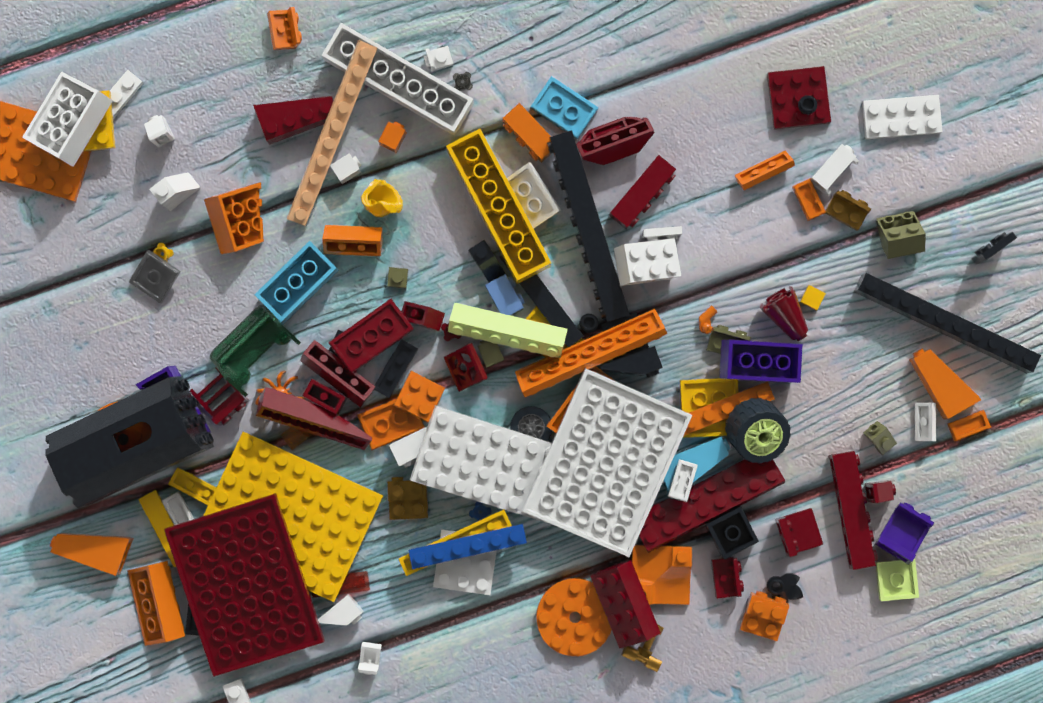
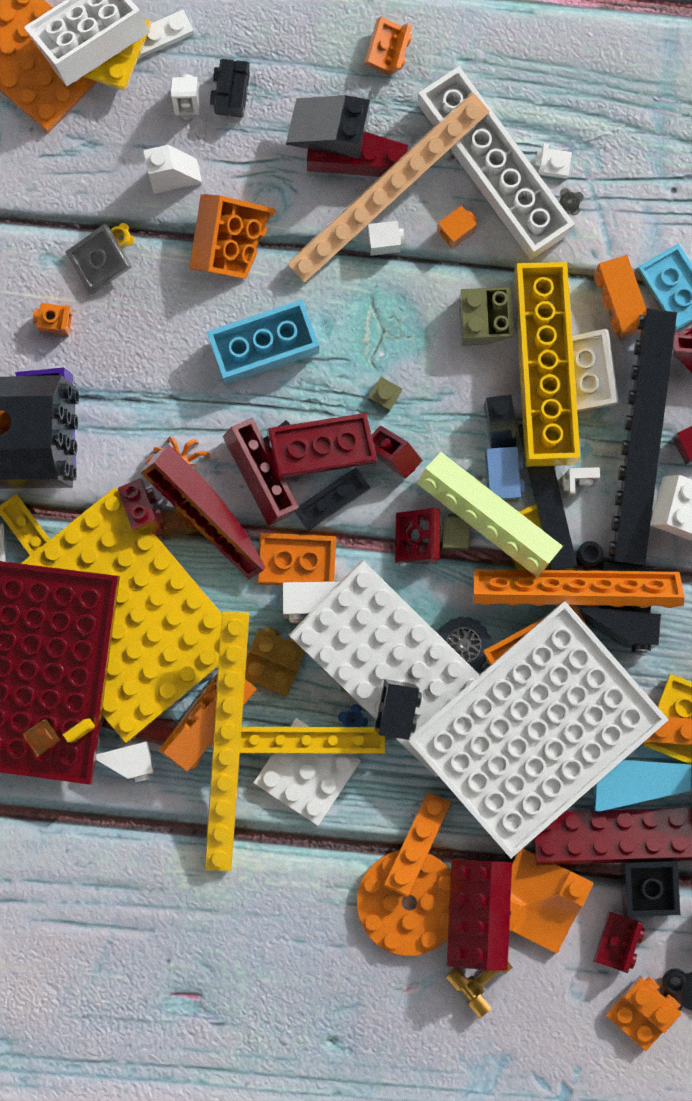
camera: 25 degrees right, 5 degrees down
(150, 333) = (59, 325): none -> orange brick
(188, 110) = (231, 87): none -> black brick
(227, 408) = (111, 452): dark red plate -> none
(247, 344) = (172, 389): clear green windscreen -> none
(267, 437) = (140, 507): none -> dark red bracket
(270, 108) = (330, 124): none -> slope
(275, 626) = (41, 737): none -> clear orange plate
(298, 611) = (79, 730): none -> yellow tile
(325, 396) = (232, 491): dark red brick -> none
(352, 240) = (352, 324): orange brick -> none
(369, 658) = (135, 832): white bracket -> none
(381, 199) = (409, 292): yellow hair -> none
(381, 560) = (196, 729): none -> orange wedge
(401, 569) = (226, 740): none -> yellow plate
(419, 396) = (344, 544): orange plate -> none
(441, 190) = (486, 315): none -> olive slope
(447, 335) = (413, 490): dark red plate -> none
(467, 546) = (320, 751): blue plate -> none
(506, 494) = (397, 709): none -> black brick
(560, 272) = (583, 476): none -> white bracket
(562, 576) = (417, 844): none -> orange plate
(682, 480) = (619, 795): white plate -> none

